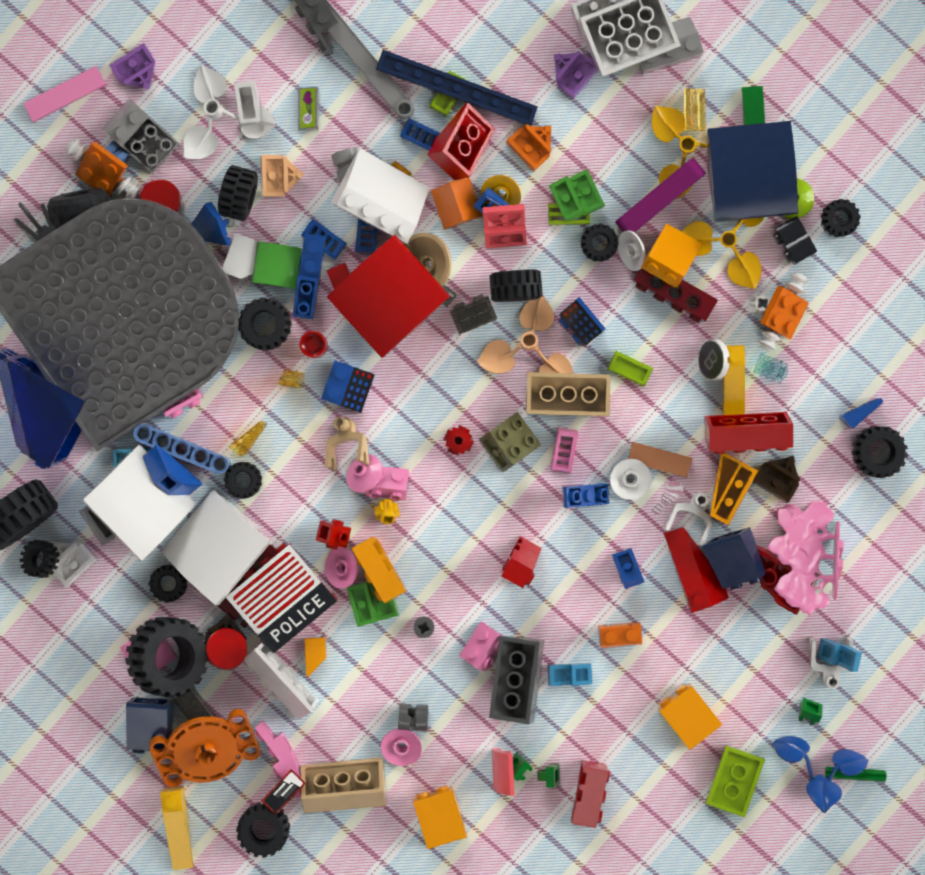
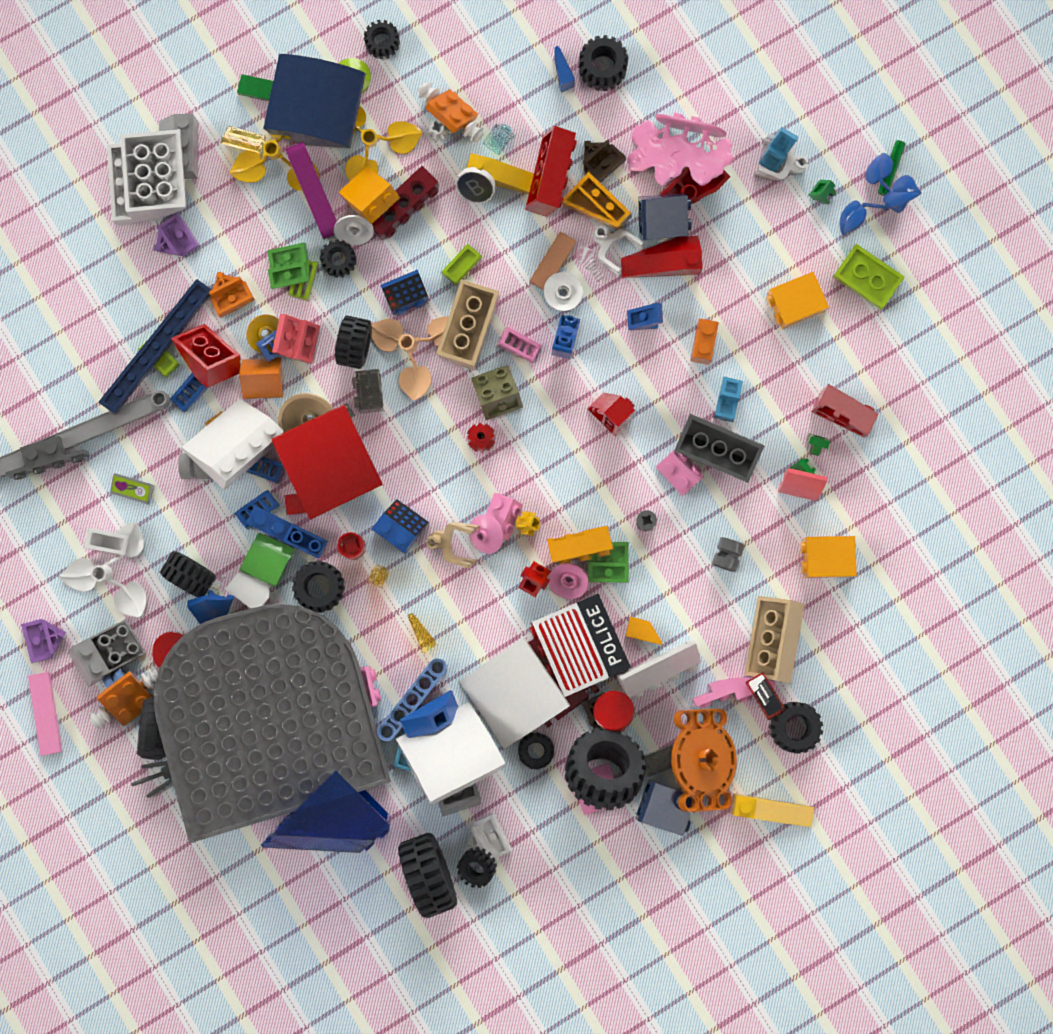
camera: 75 degrees left, 5 degrees down
(231, 485) = (447, 655): black tyre -> none
(277, 175) = (184, 535): light nougat slope -> none
(399, 754) = (760, 576): bright pink dish -> none
(794, 240) = (389, 84): black brick -> none

